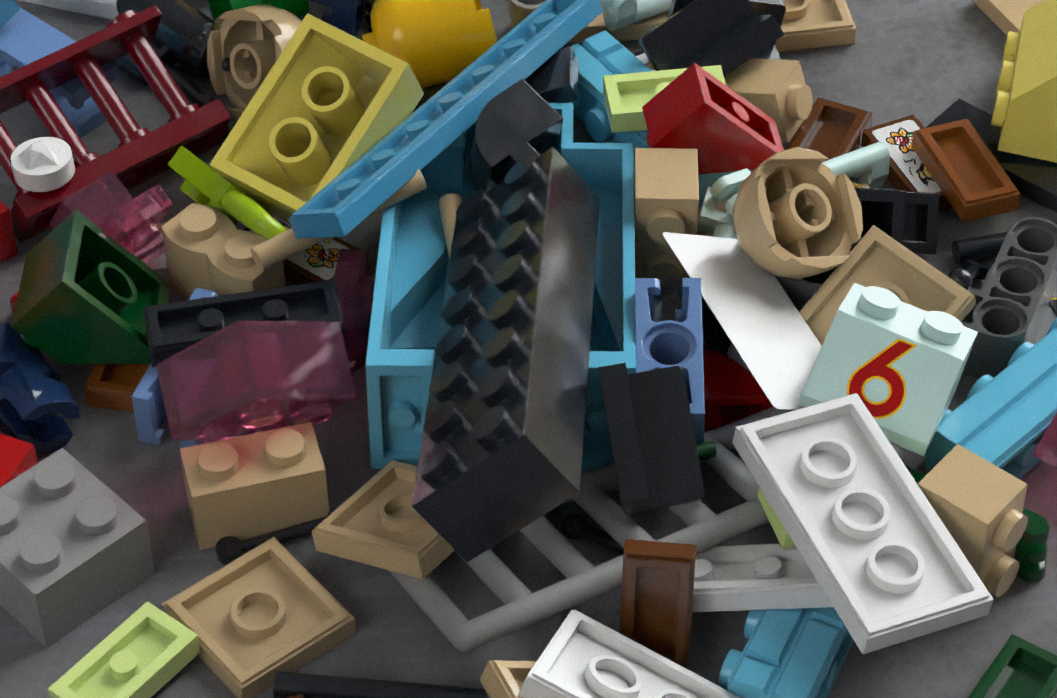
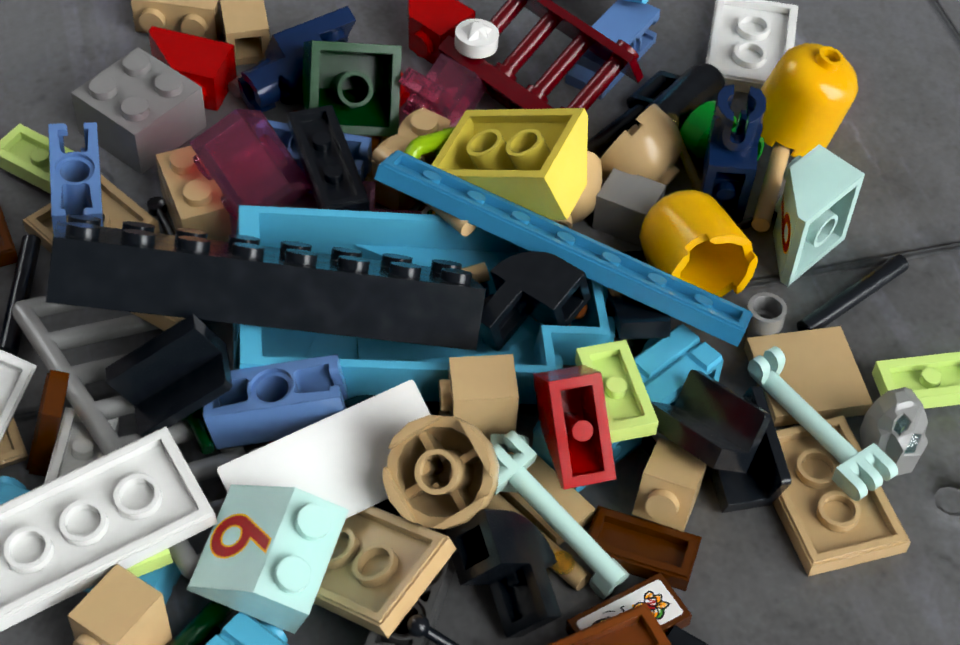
camera: 80 degrees right, 5 degrees up
(222, 592) = (74, 175): none -> medium blue piece

